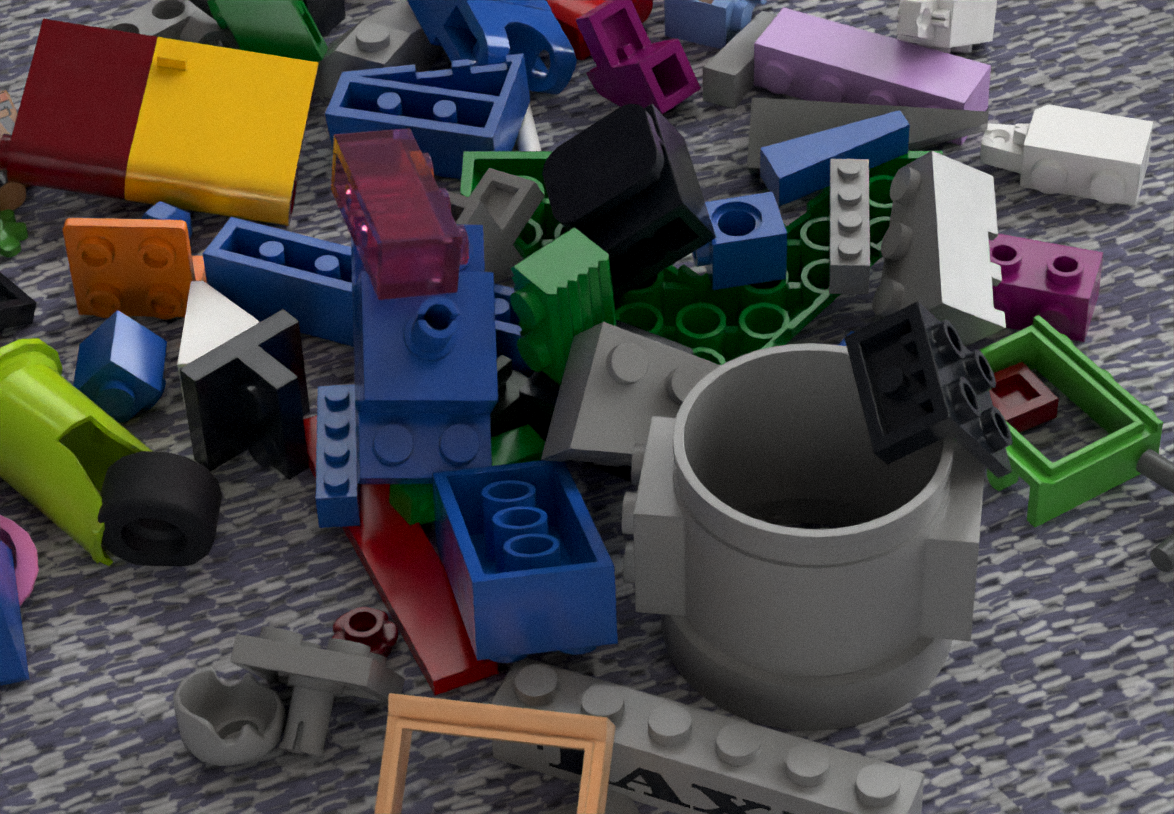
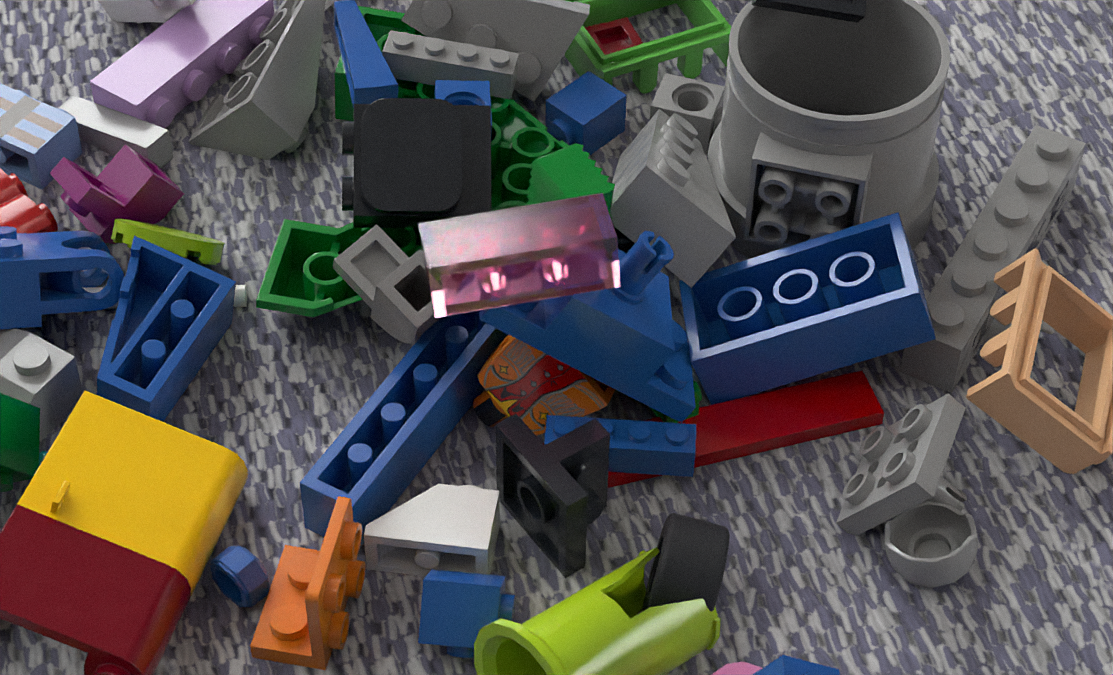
camera: 85 degrees left, 5 degrees up
(378, 633) = (818, 467): dark red plate -> none
(564, 95) = (173, 240): none -> lime tile

